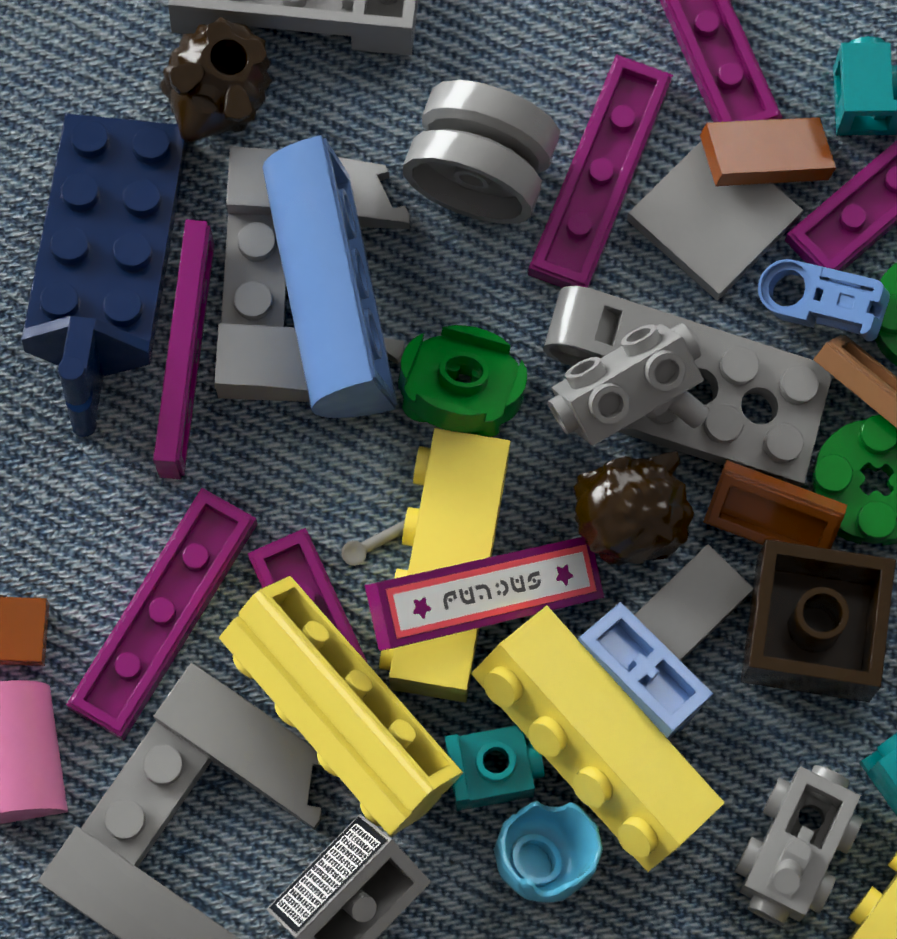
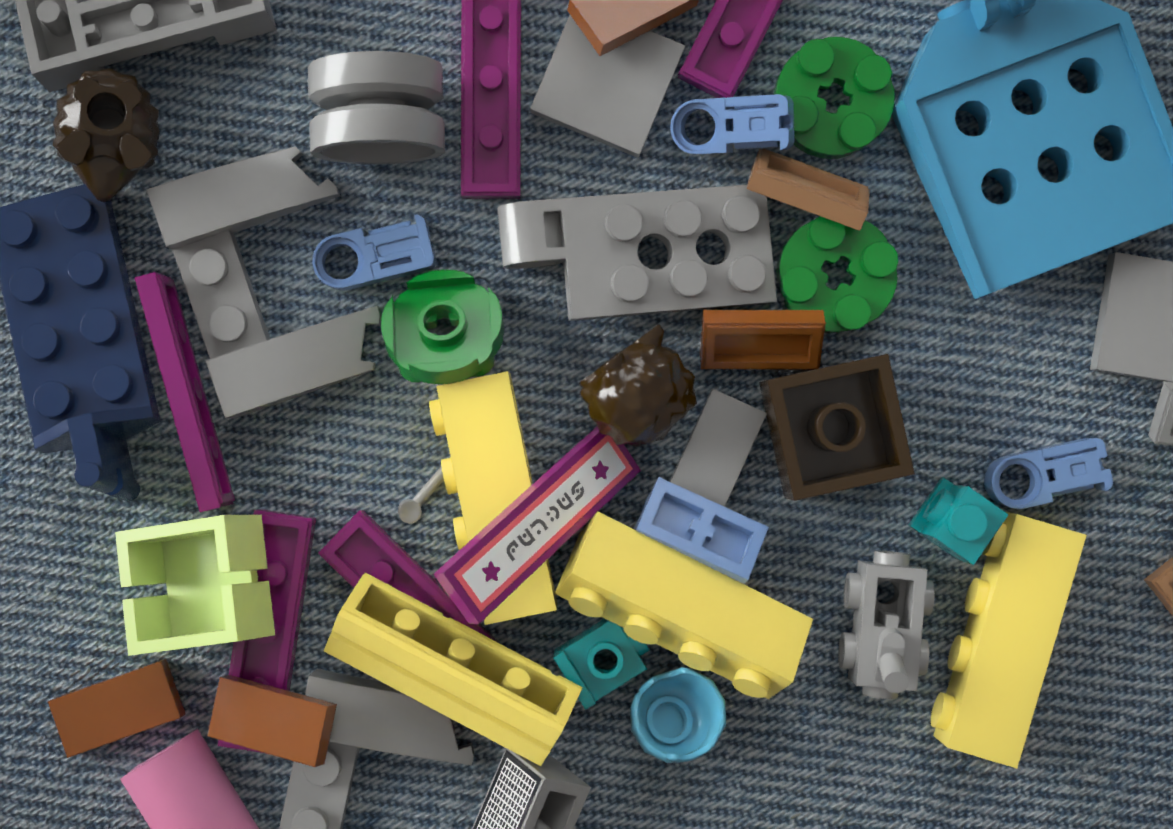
camera: 20 degrees left, 15 degrees up
(133, 521) = (208, 579): none -> yellowish green piece
(137, 690) = (272, 720): none -> dark orange tile
(328, 281) = (287, 288): medium blue brick -> none
(430, 294) = (381, 255): none -> medium blue piece
(633, 381) = (597, 285): light grey brick -> none

